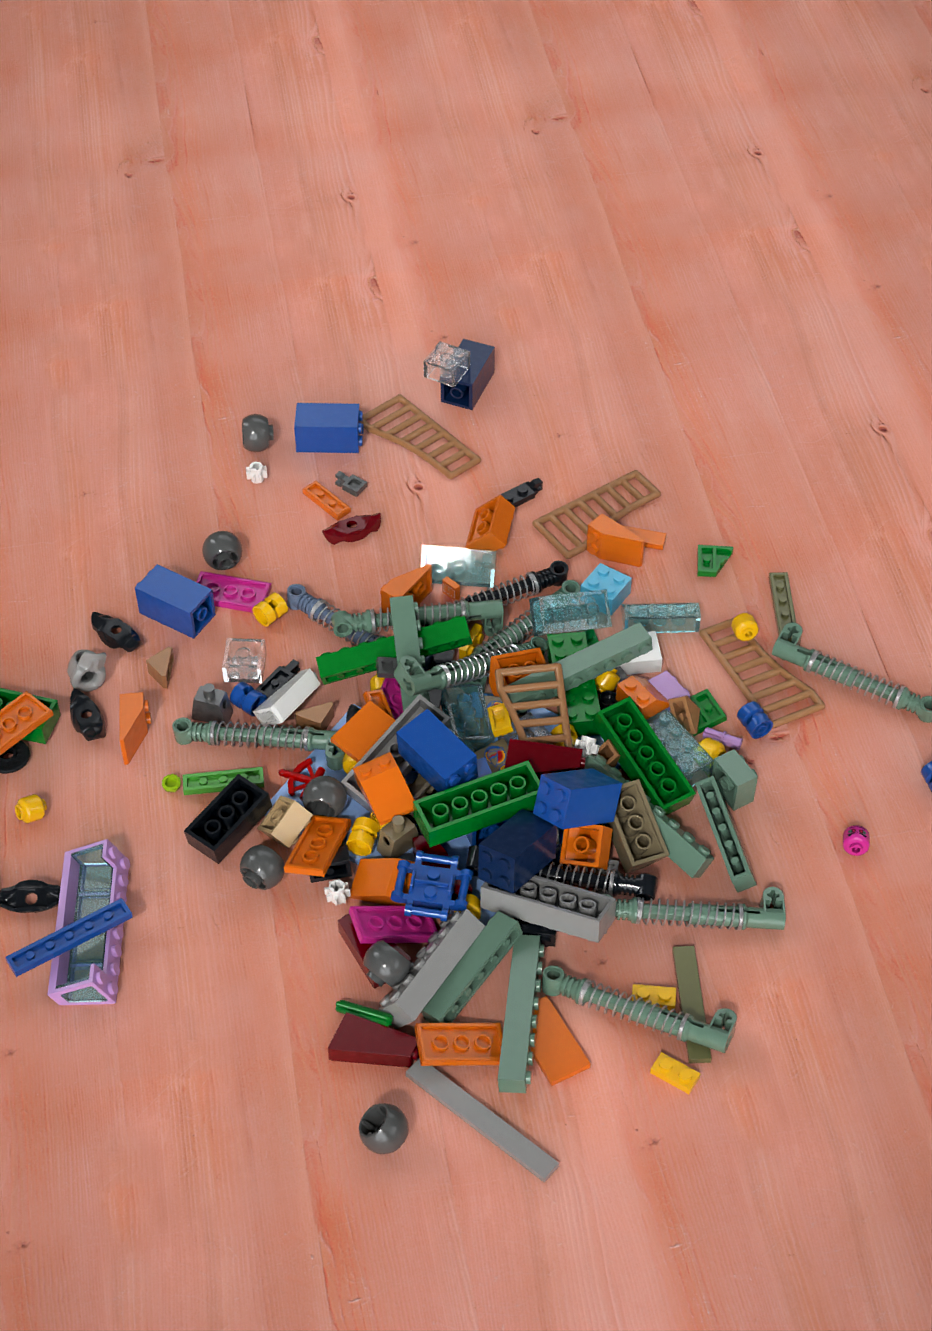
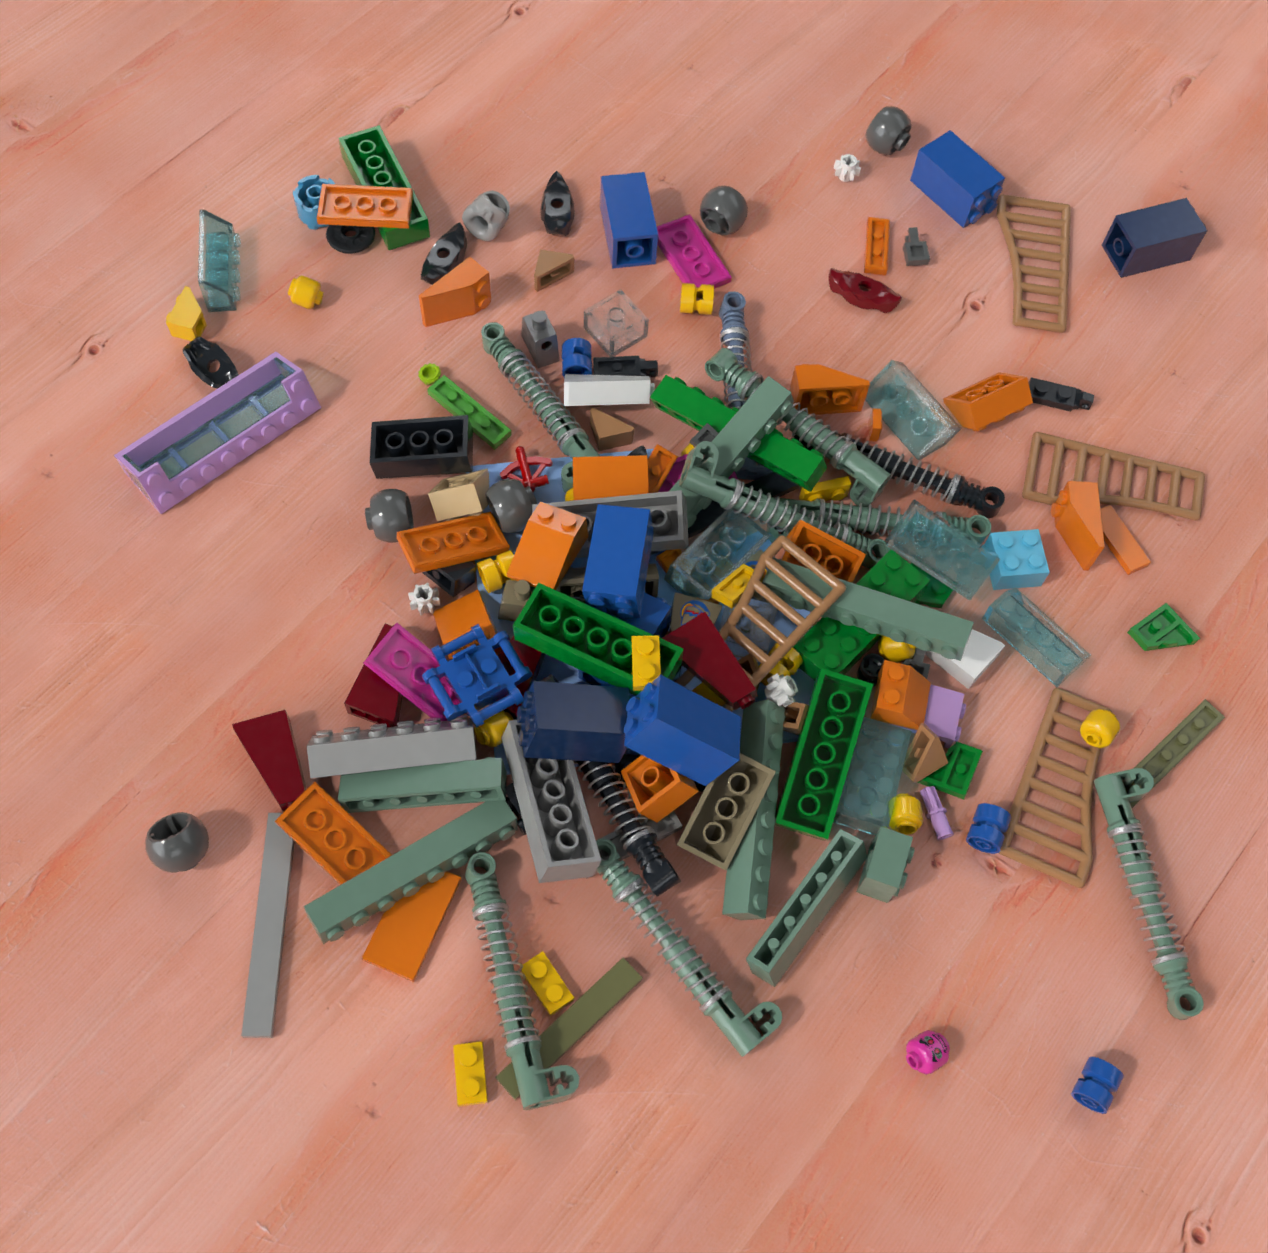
camera: 45 degrees right, 15 degrees up
(68, 937) = (179, 423): blue plate -> none
(364, 1012) = (301, 725): green axle -> none
(385, 964) = (352, 703): dark grey wheel -> none
(446, 364) = (1132, 207): clear brick -> none
(519, 782) = (645, 660): none -> yellow plate

